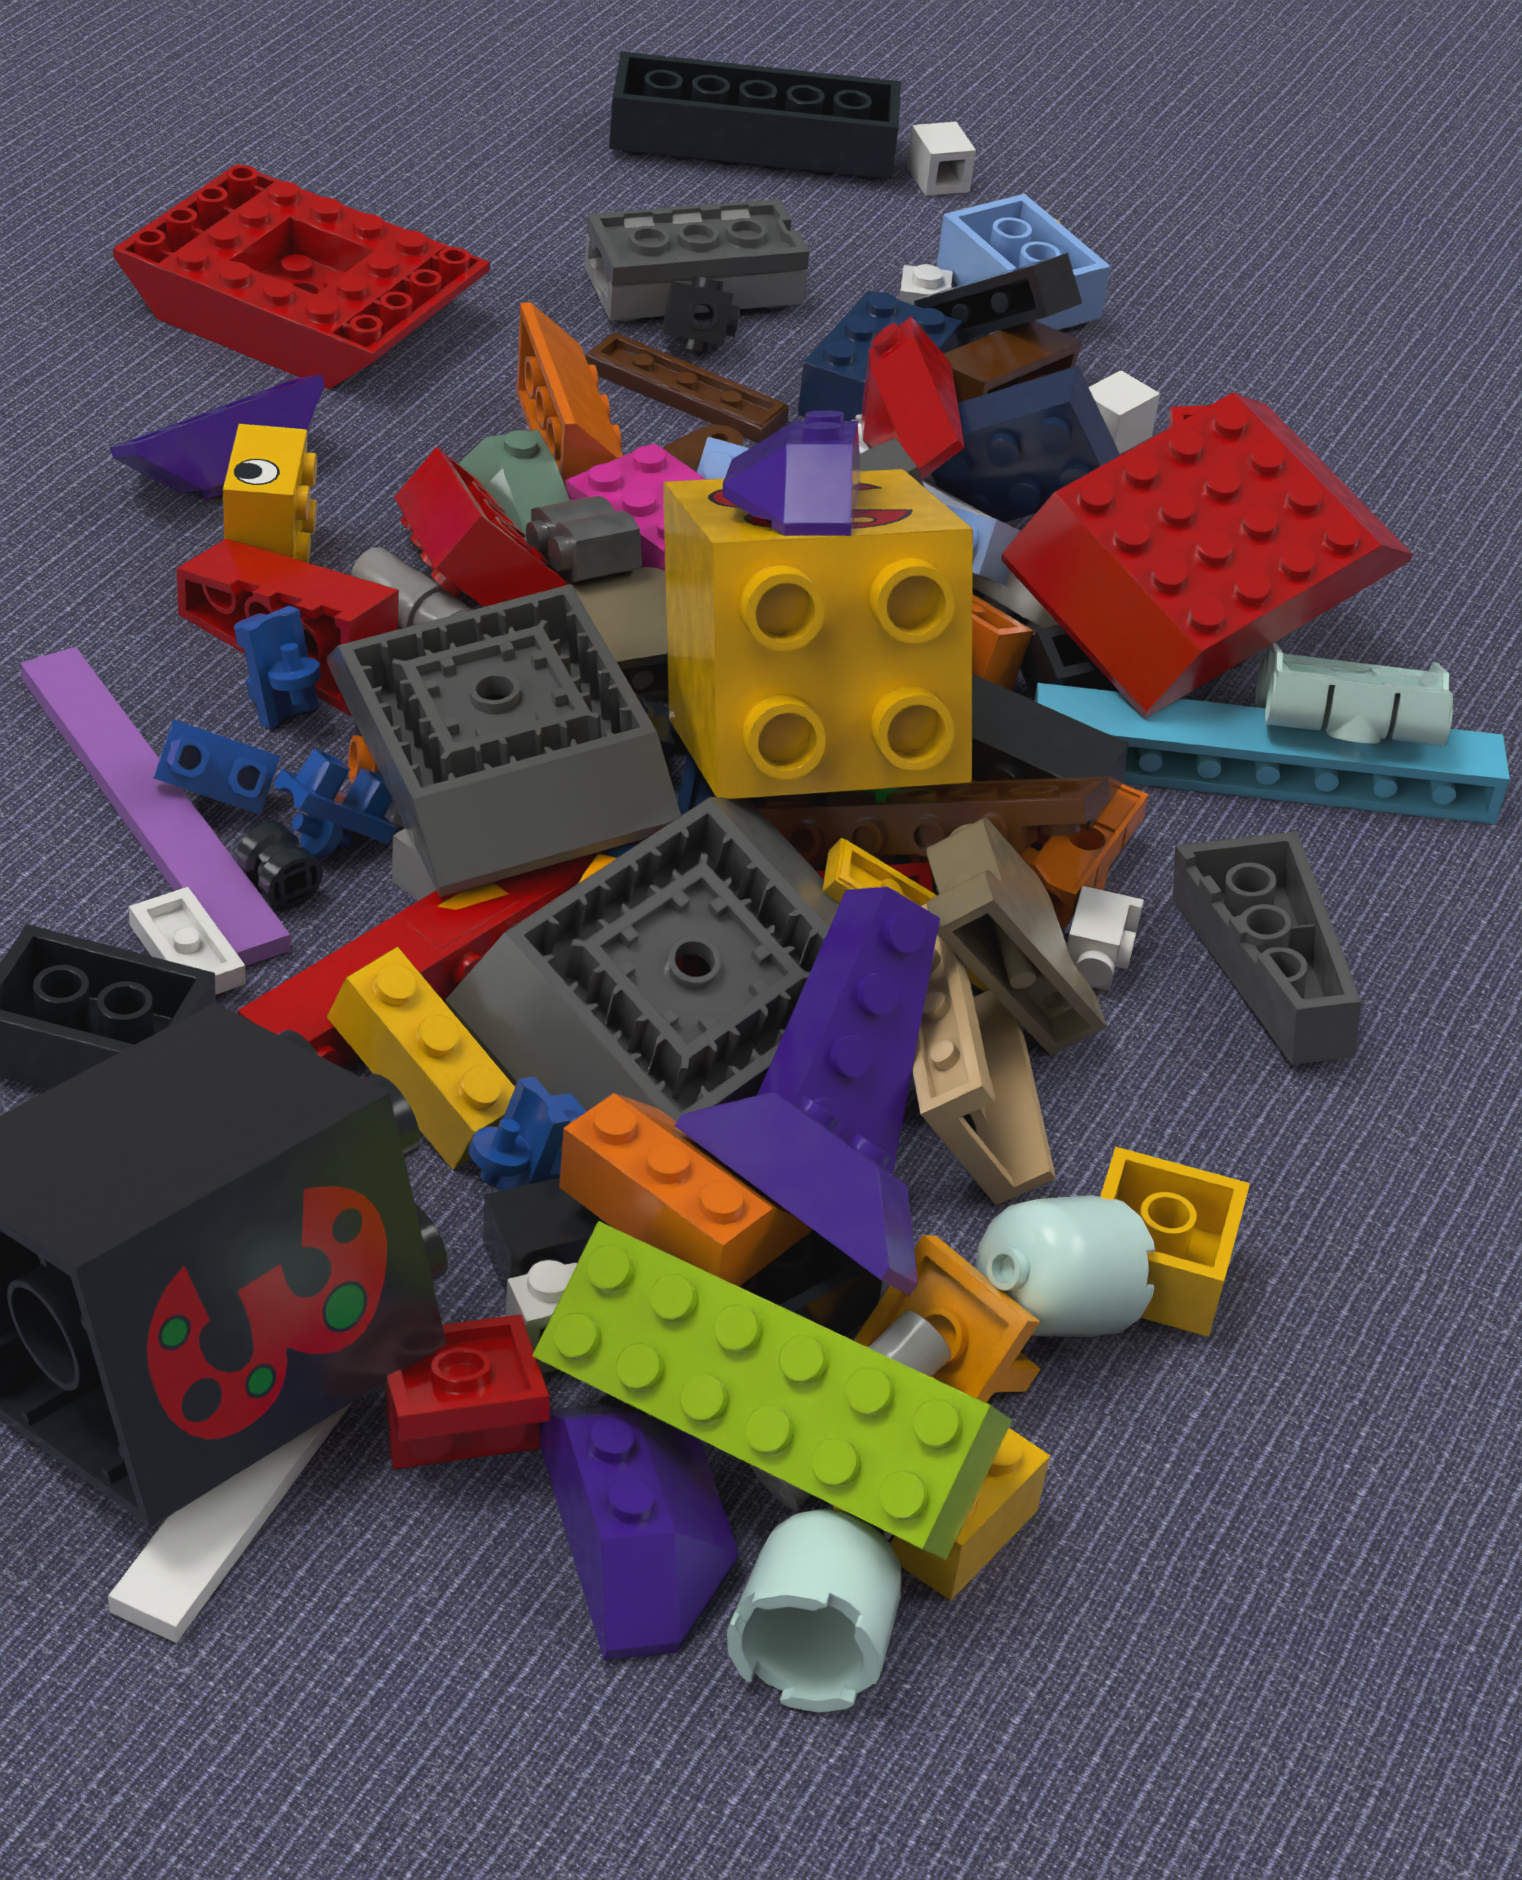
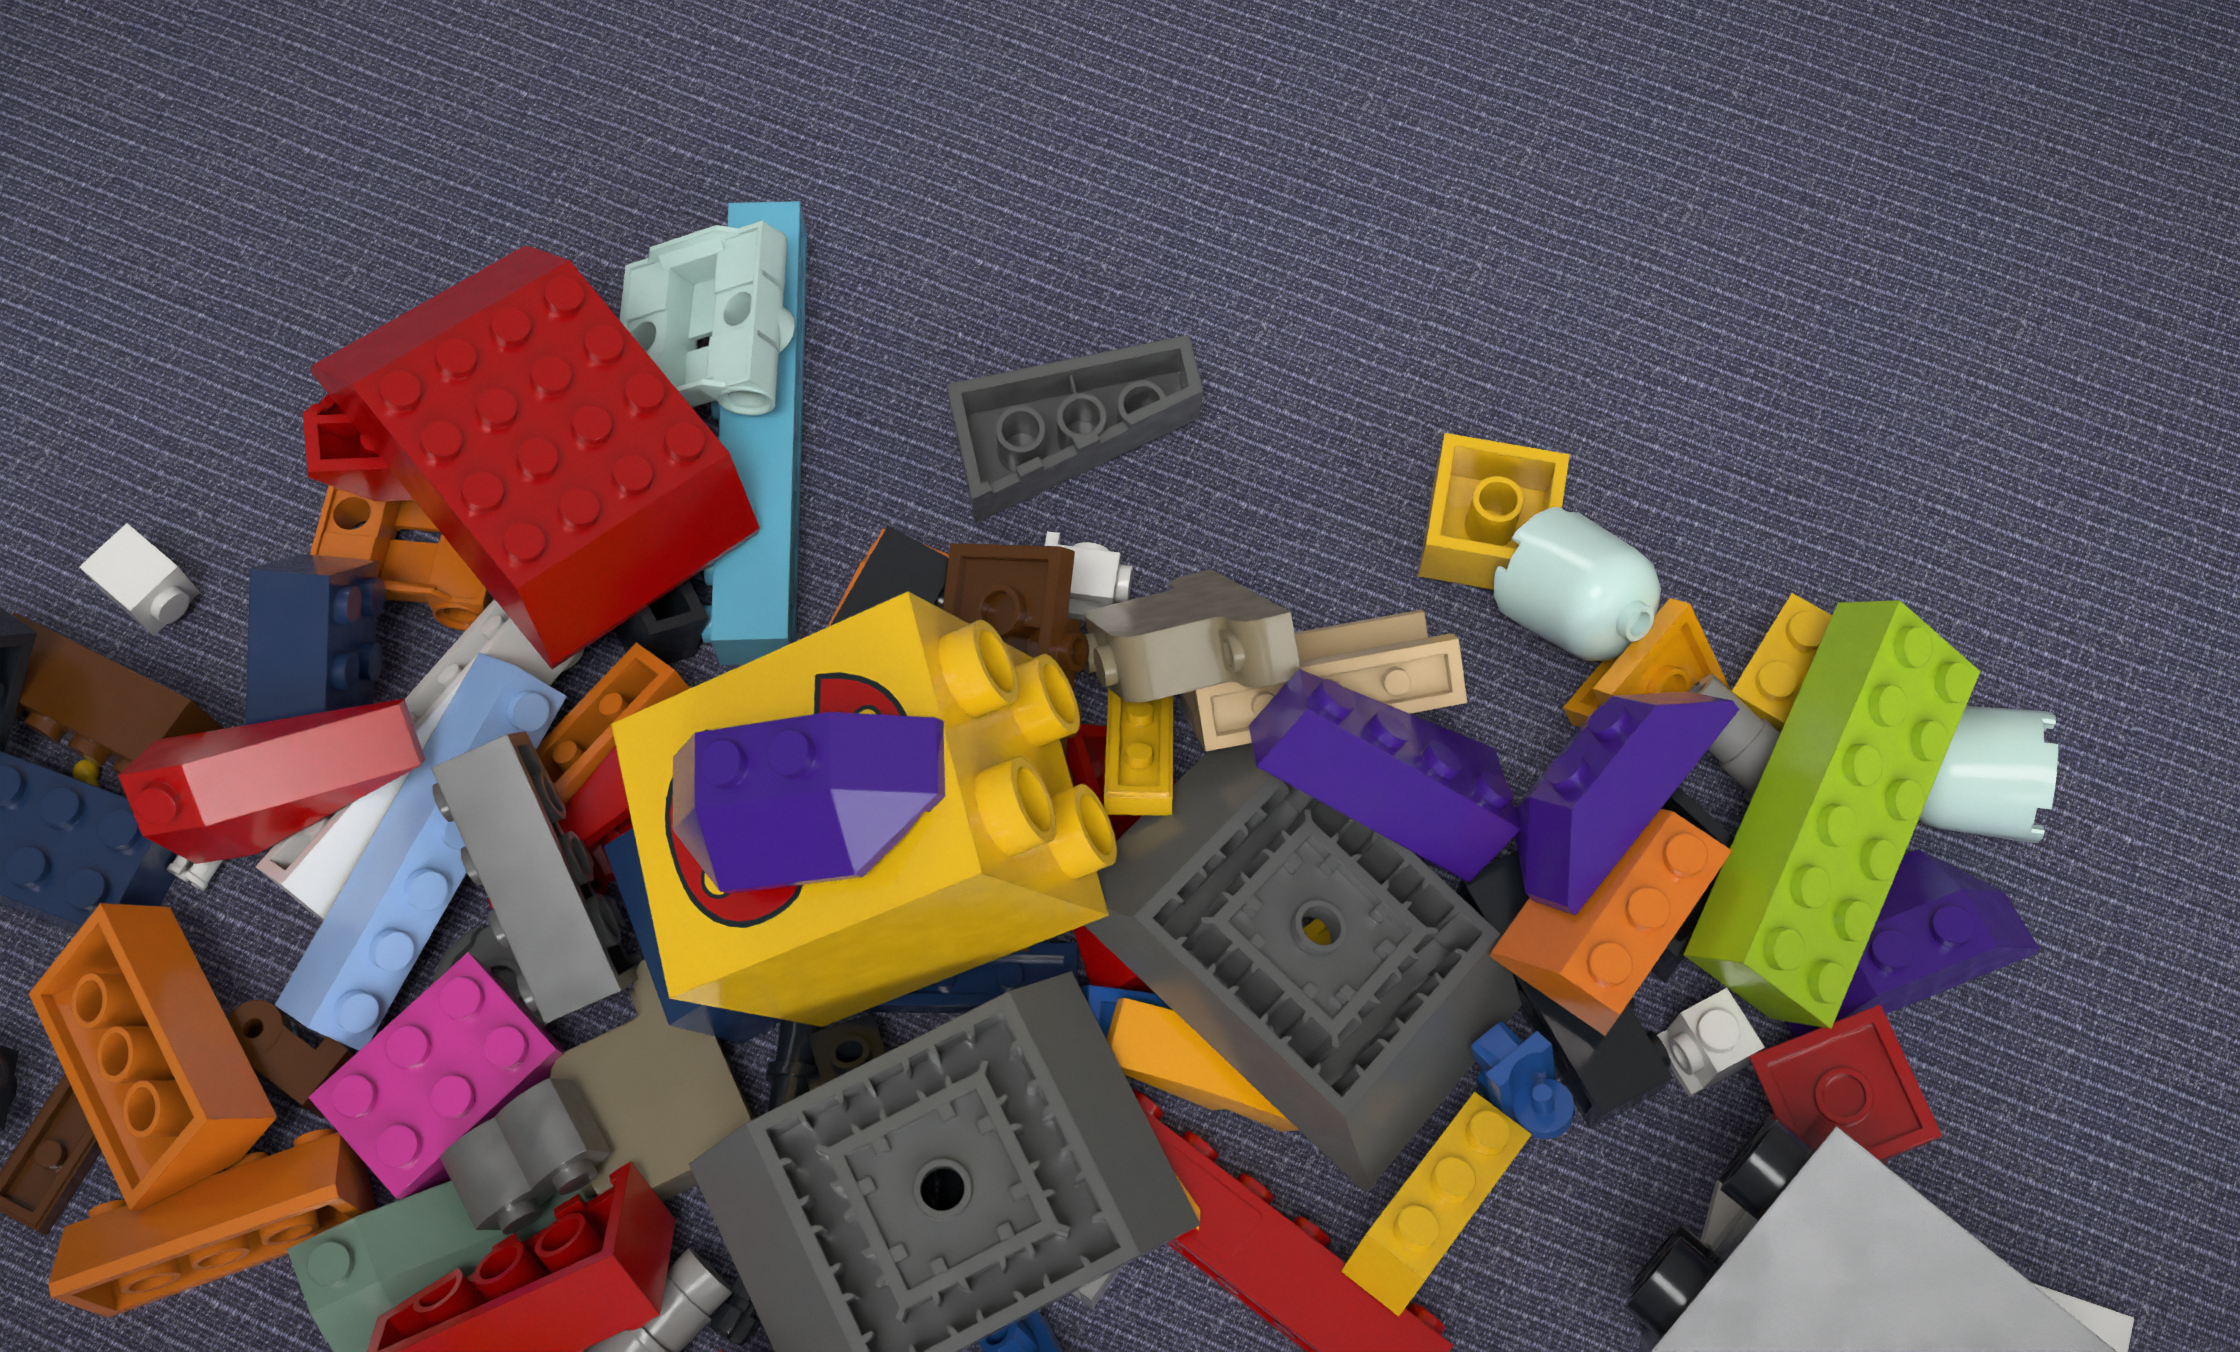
camera: 90 degrees left, 25 degrees up
(708, 381) = (150, 1053): none -> orange slope

